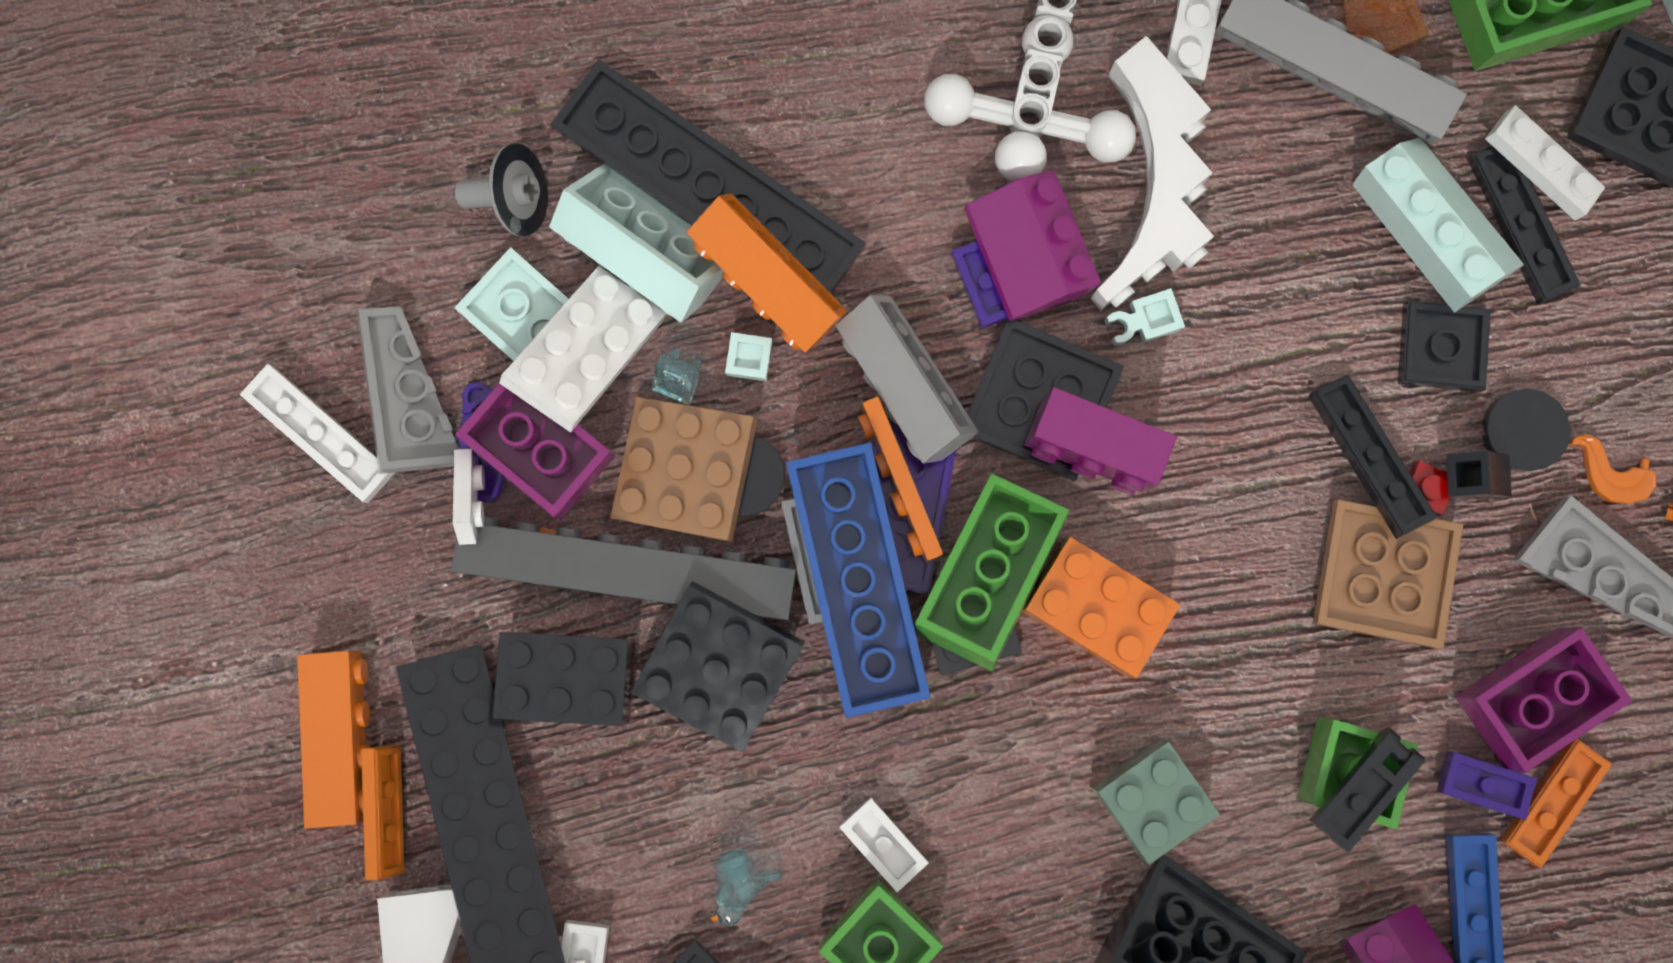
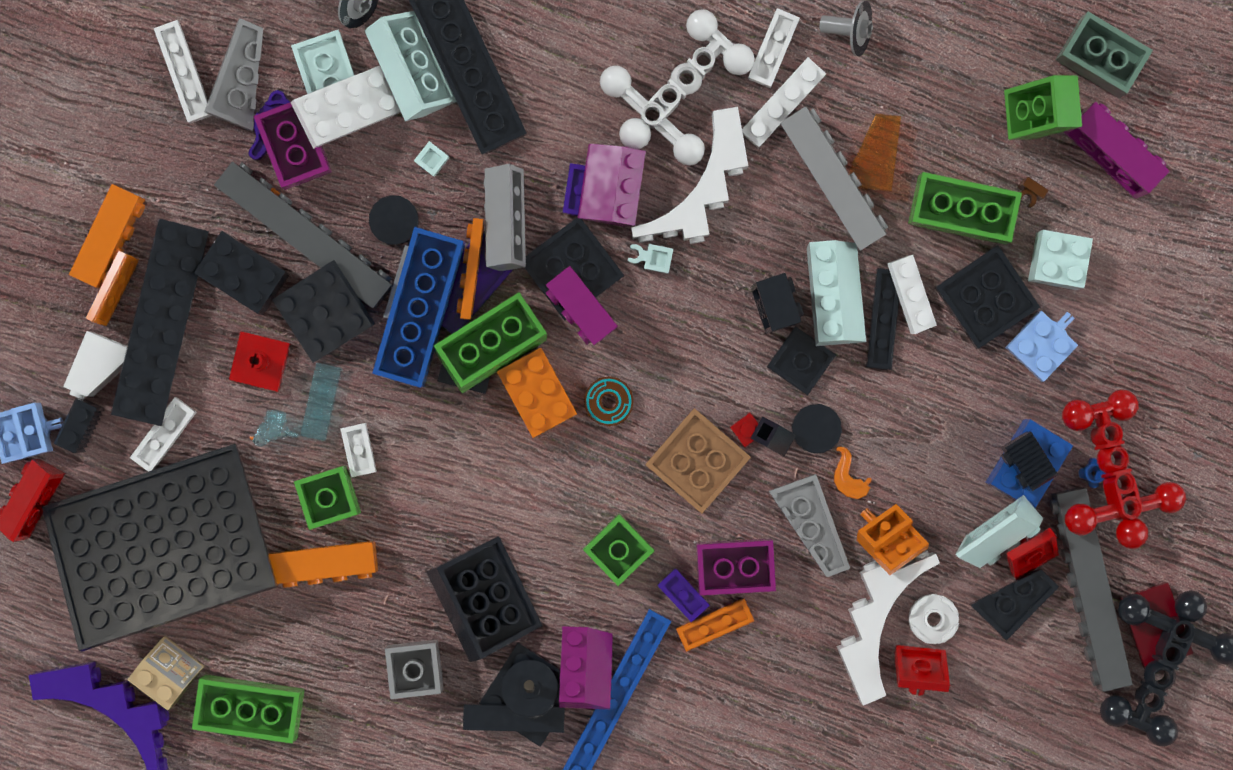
camera: 20 degrees right, 5 degrees up
(467, 511) = (239, 159): white plate -> none
(661, 795) = (259, 361): none -> red tile
(676, 377) = (387, 149): clear light blue tile -> none
(684, 468) = (364, 199): medium nougat plate -> none
(766, 272) = (463, 120): orange brick -> none
(786, 803) = (320, 401): none -> clear light blue tile
(1154, 800) = (508, 505): sand green brick -> none
(1230, 556) = (594, 396): none -> reddish brown tile
(1366, 790) = (612, 557): black plate -> none
(1372, 456) = (725, 395): black tile -> none
(1378, 277) = (776, 303): none -> black brick

